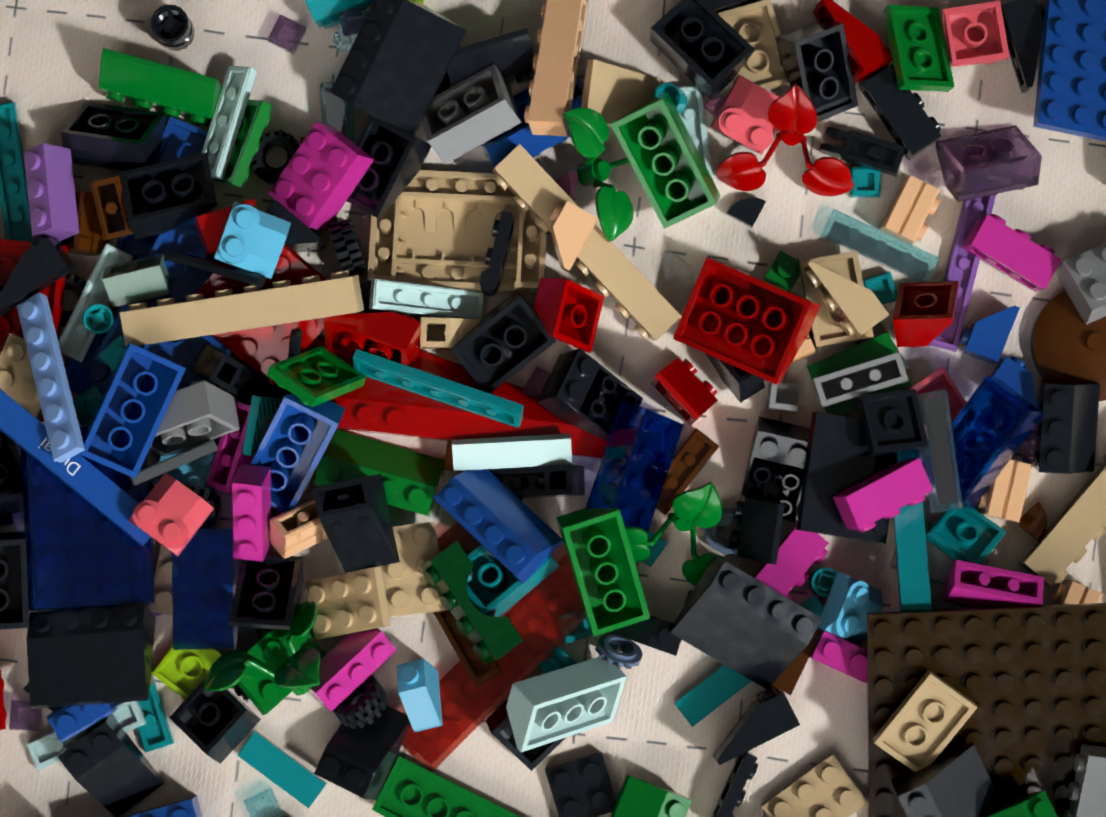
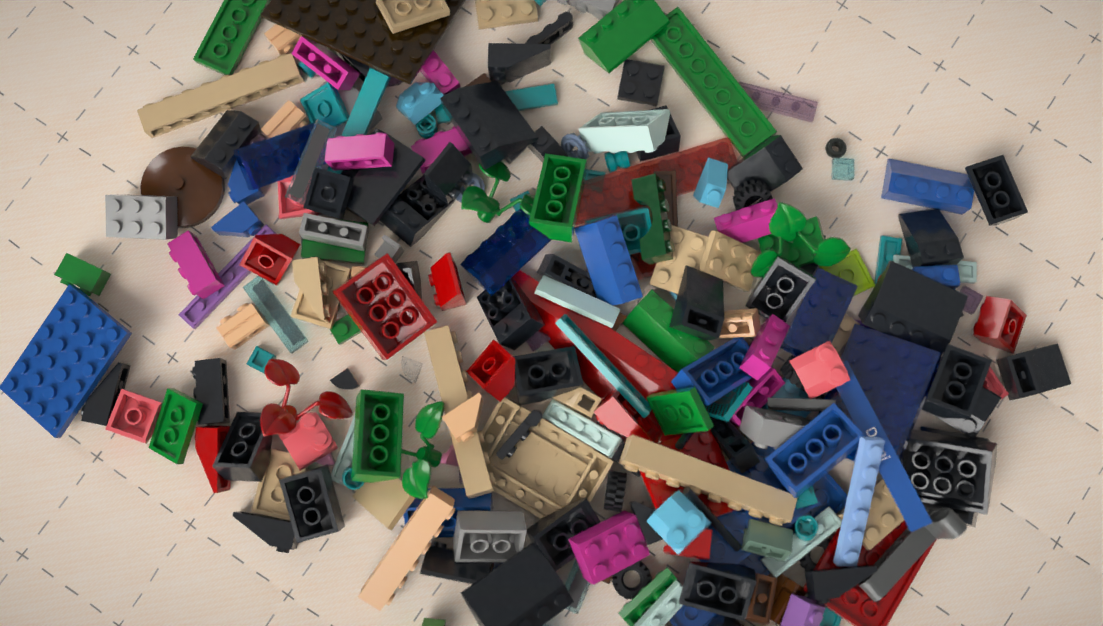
camera: 150 degrees left, 5 degrees down
(87, 404) = (838, 475): teal bracket -> none
(215, 721) = (854, 229): black slope -> none
(282, 769) = (820, 186): teal tile -> none
(685, 467) = (467, 243): reddish brown tile -> none
(865, 151) = (248, 378): black hinge -> none
(882, 287) = (288, 287): teal tile -> none
(988, 163) = (175, 328): clear purple slope -> none
(1034, 522) = (279, 97): reddish brown tile -> none

